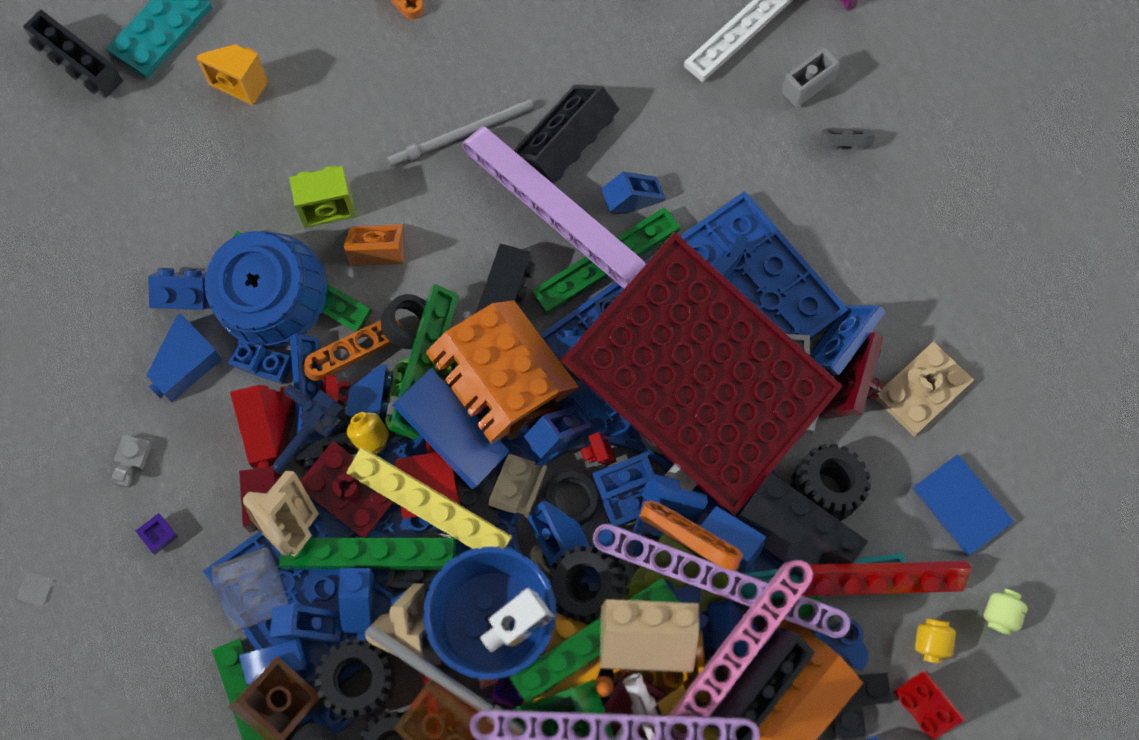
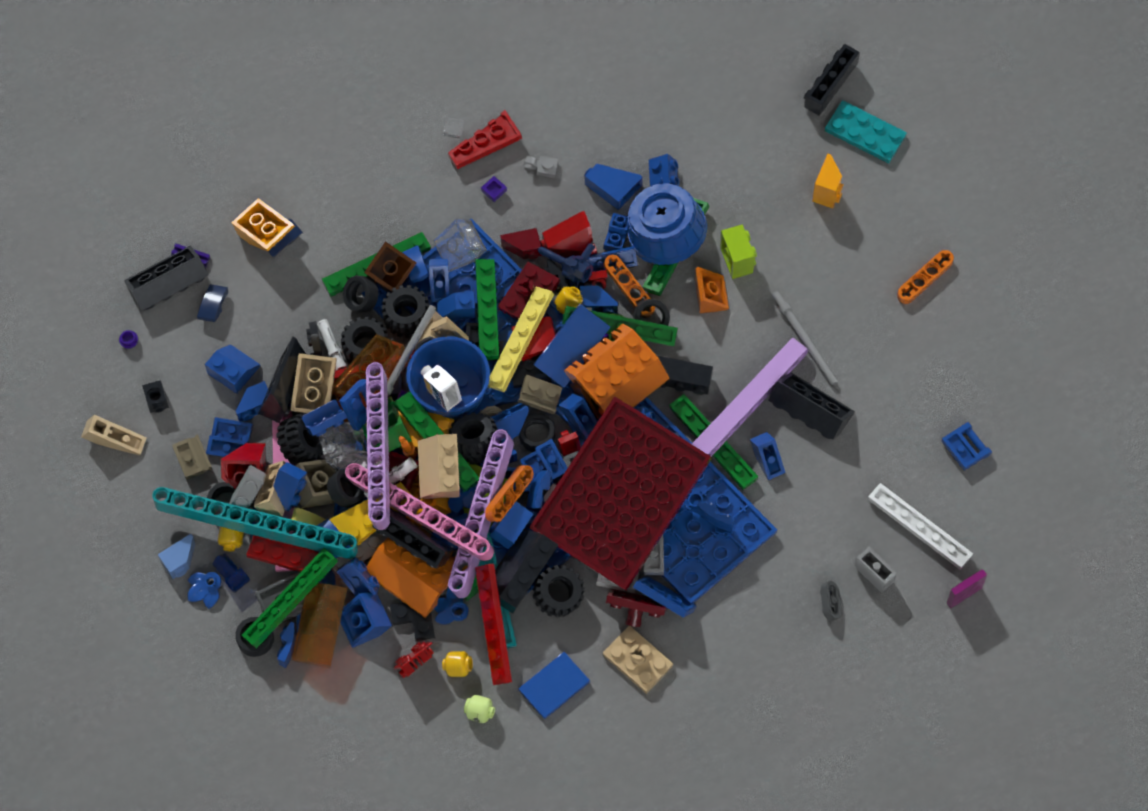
camera: 85 degrees right, 5 degrees down
(68, 532) = (495, 136): none -> red wing
(283, 513) = (505, 254): tan piece -> none

